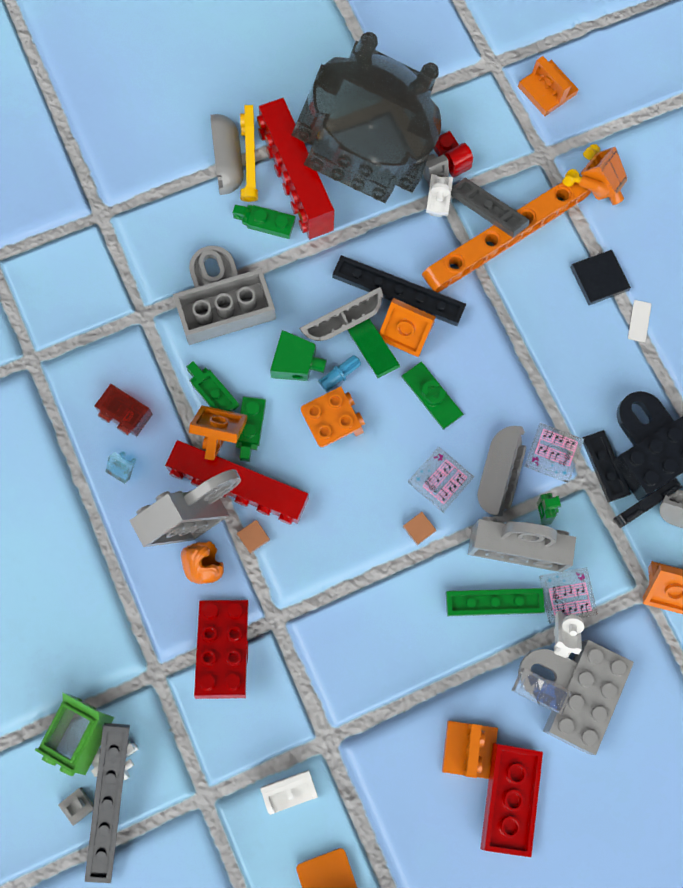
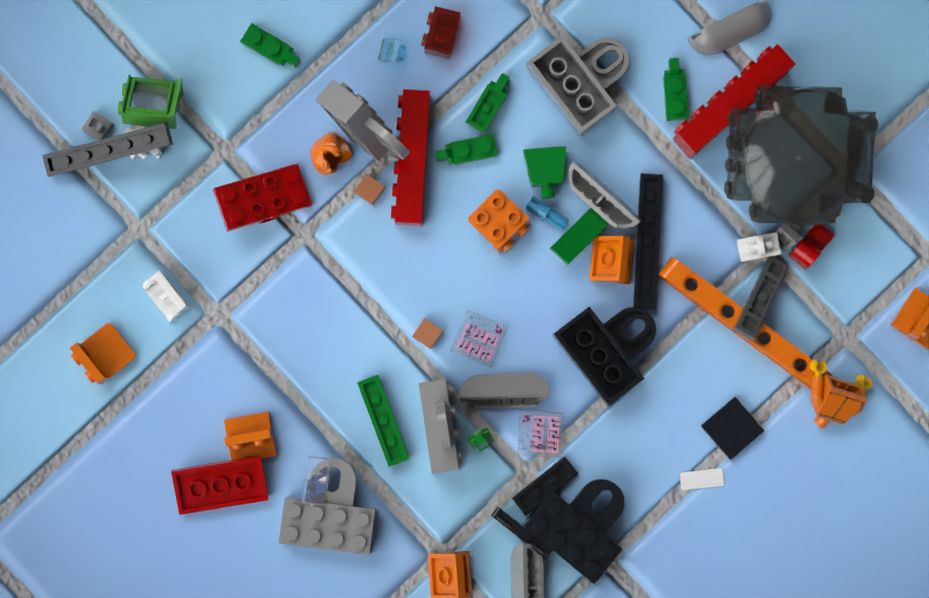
camera: 75 degrees right, 10 degrees up
(66, 589) = (269, 46): none -> green hinge
(217, 427) = (451, 121): orange bracket -> none
(249, 193) = (762, 40): yellow plate -> none
(432, 395) = (557, 305): green piece -> none
(495, 364) = (604, 352): none -> black brick
(568, 593) = (412, 484): clear tile -> none
(568, 634) = (374, 490): white hips -> none

